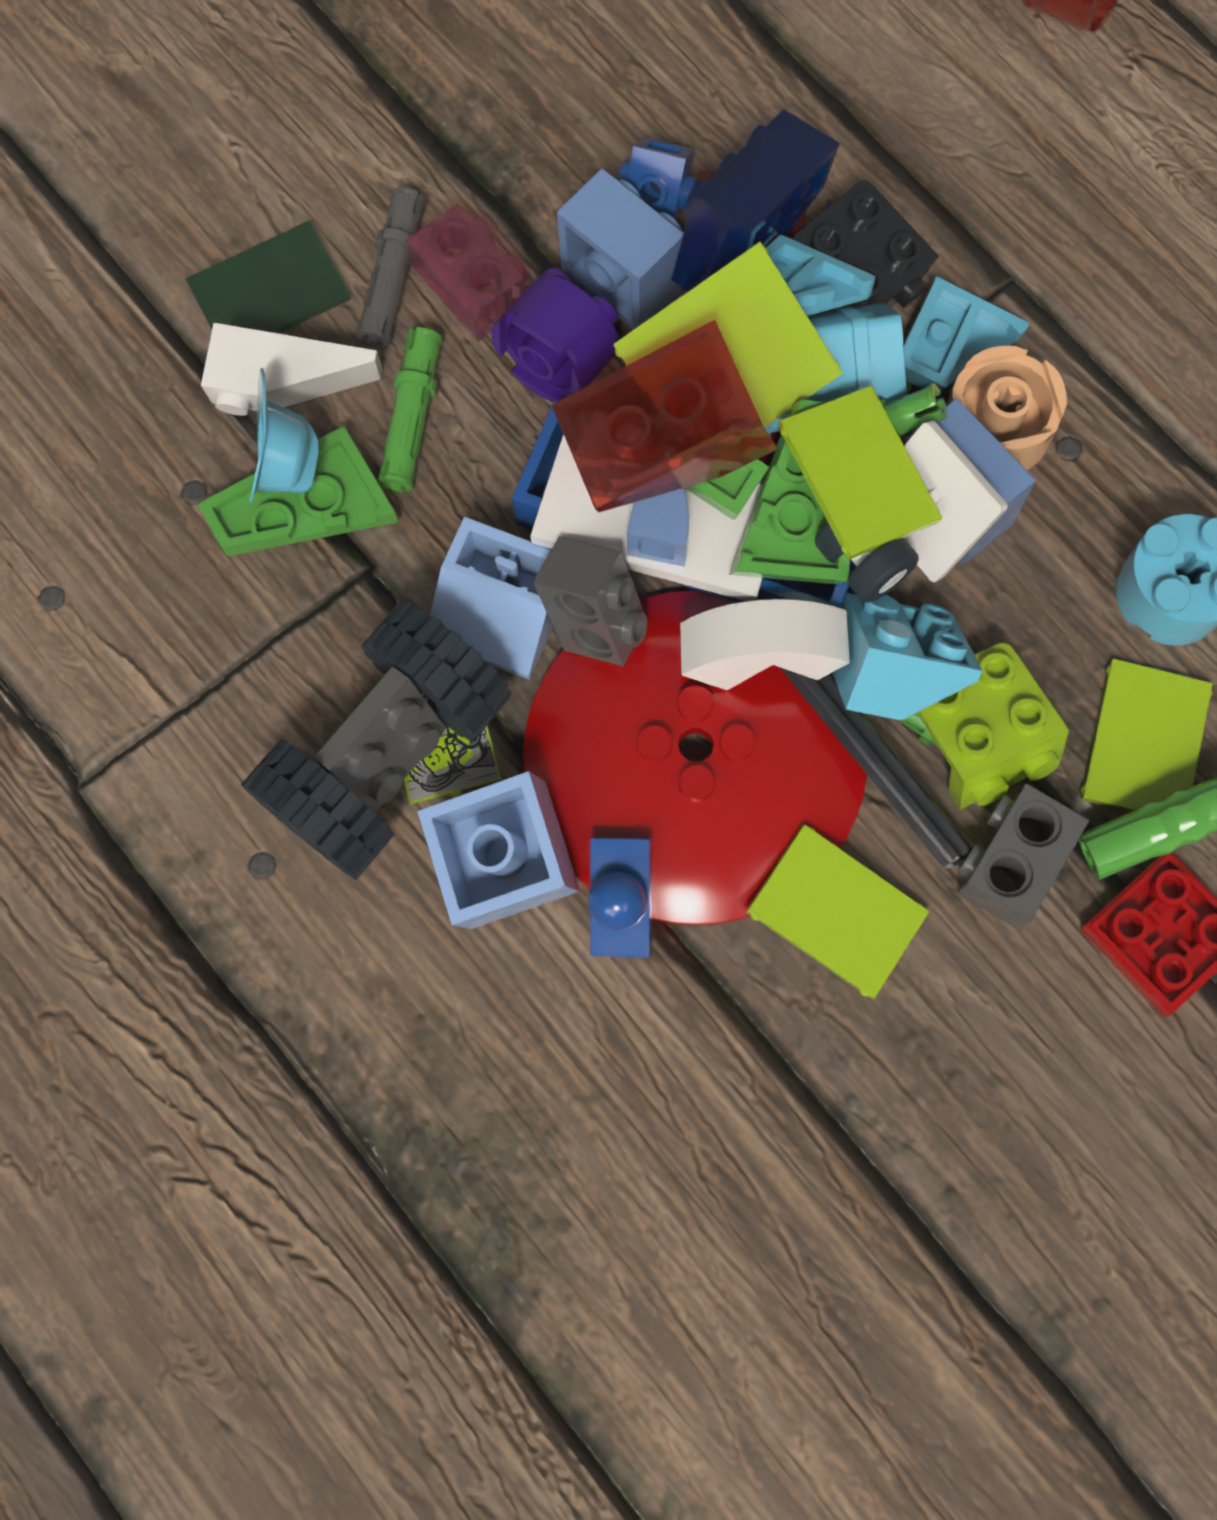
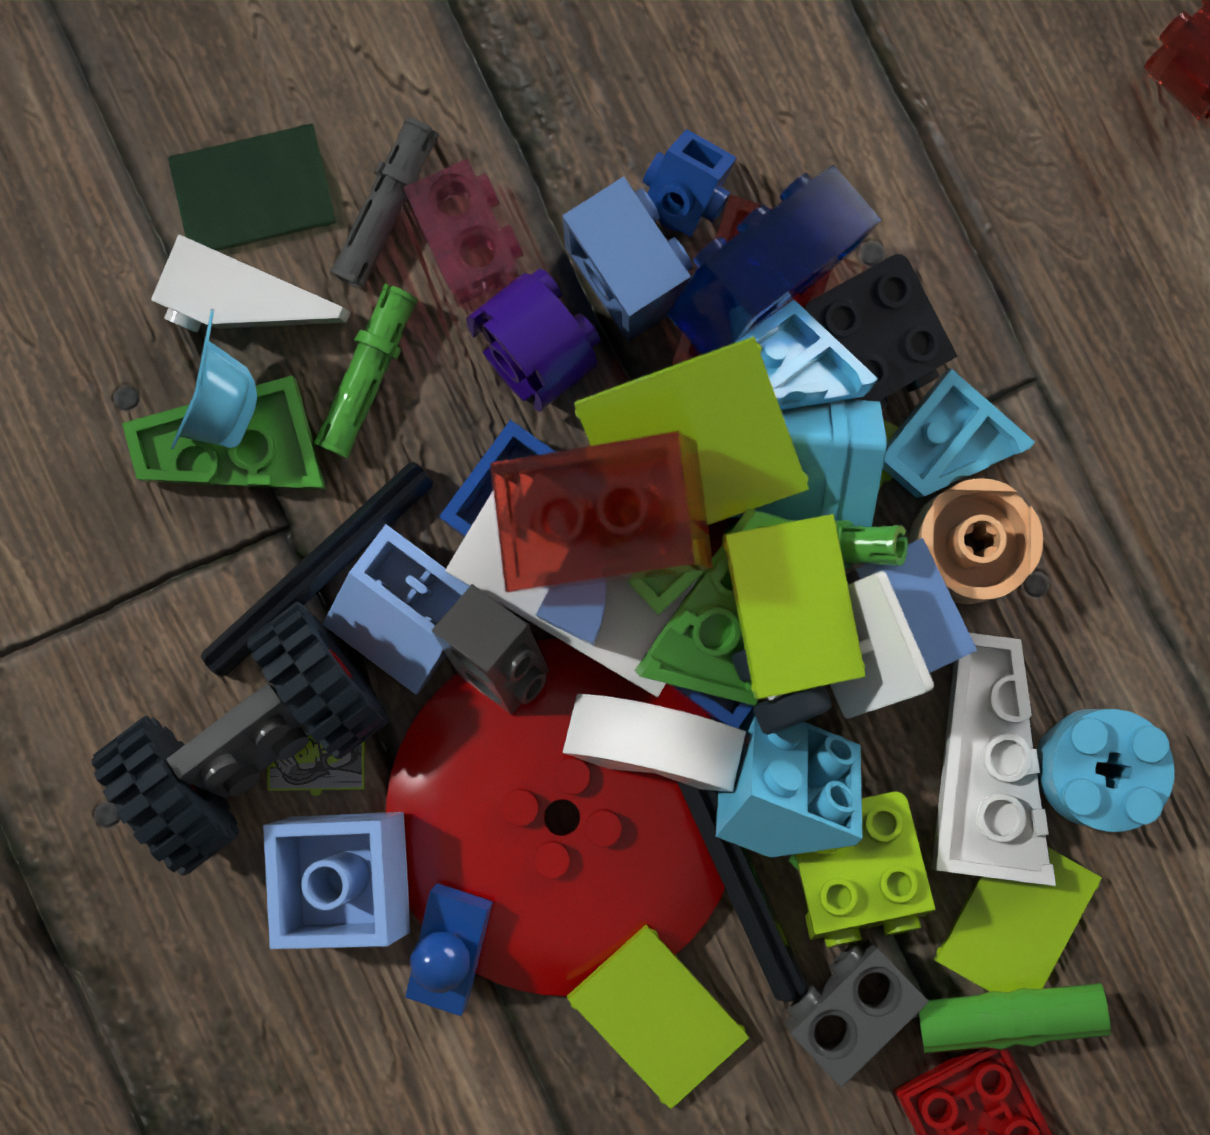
camera: 10 degrees right, 10 degrees up
(411, 586) = (319, 565): none -> black axle
(1079, 614) = (989, 780): none -> white wing

